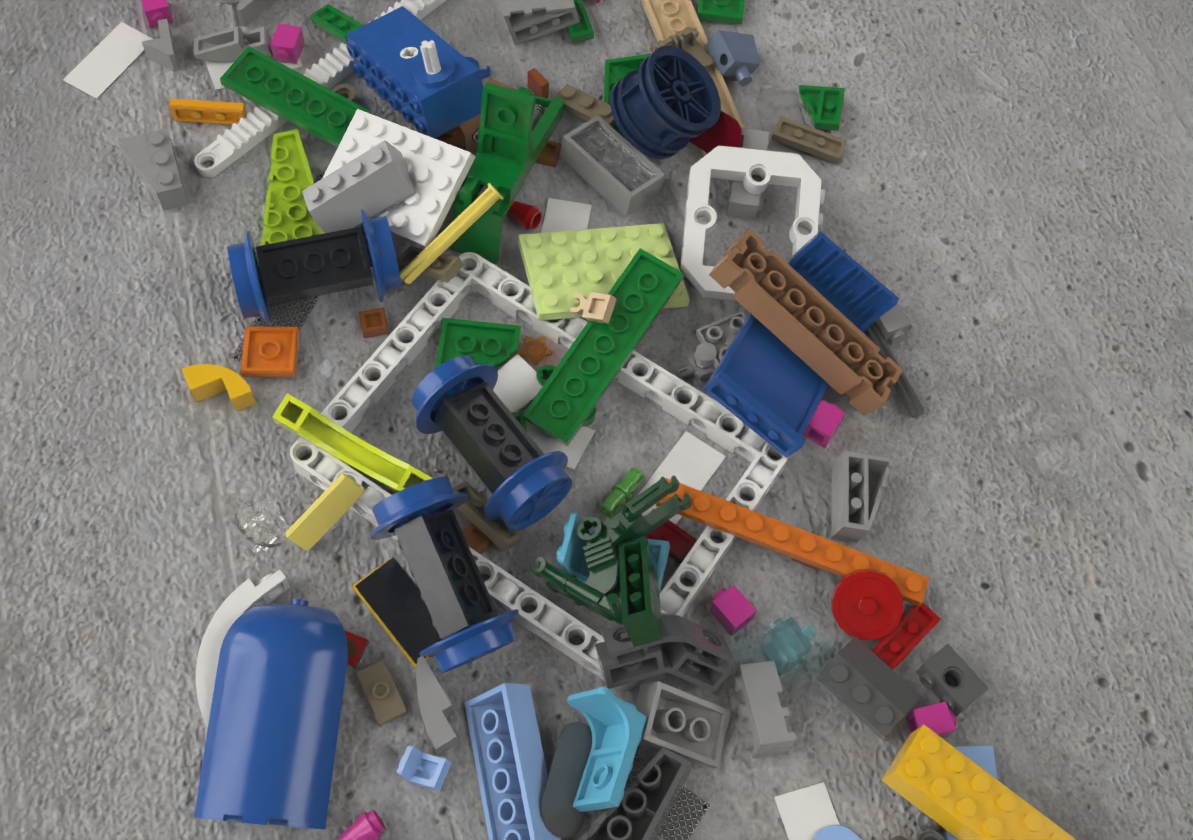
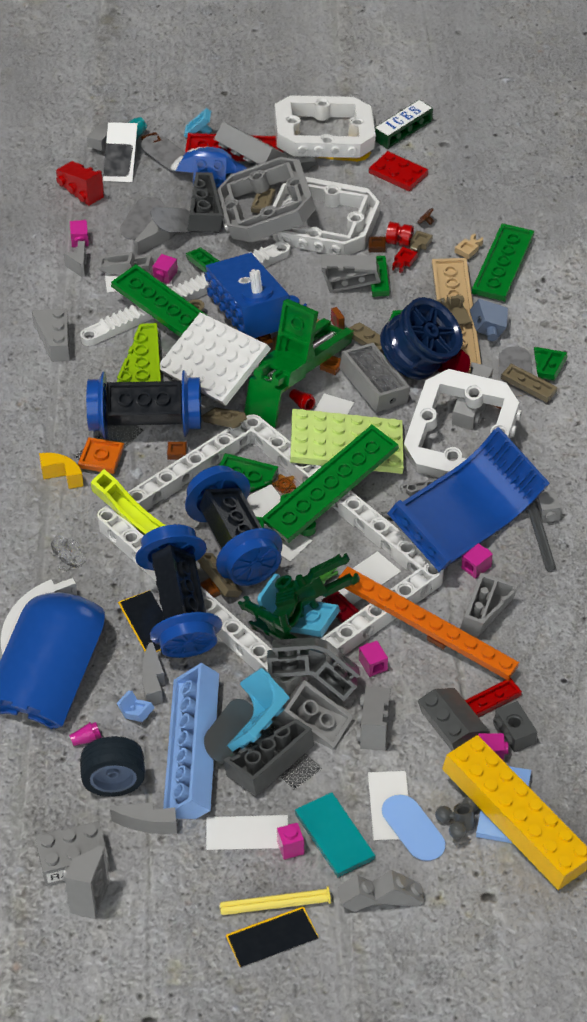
camera: 20 degrees right, 15 degrees down
(107, 60) = (37, 263): white sticker -> none
(207, 111) = (97, 303): light orange tile -> none
(325, 512) = (111, 550): light yellow tile -> none
(356, 648) = (108, 635): tile -> none
(369, 182) = (197, 356): light grey slope -> none
(381, 693) = (120, 663): dark tan plate -> none
(450, 234) = (241, 396): light yellow axle -> none
(595, 308) = (329, 456): tan plate -> none
(640, 592) = (304, 618): dark green brick -> none
(787, 643) = (403, 680): clear light blue brick -> none
(806, 322) = (477, 488): medium nougat brick -> none
(867, 604) = (468, 669): red wheel -> none

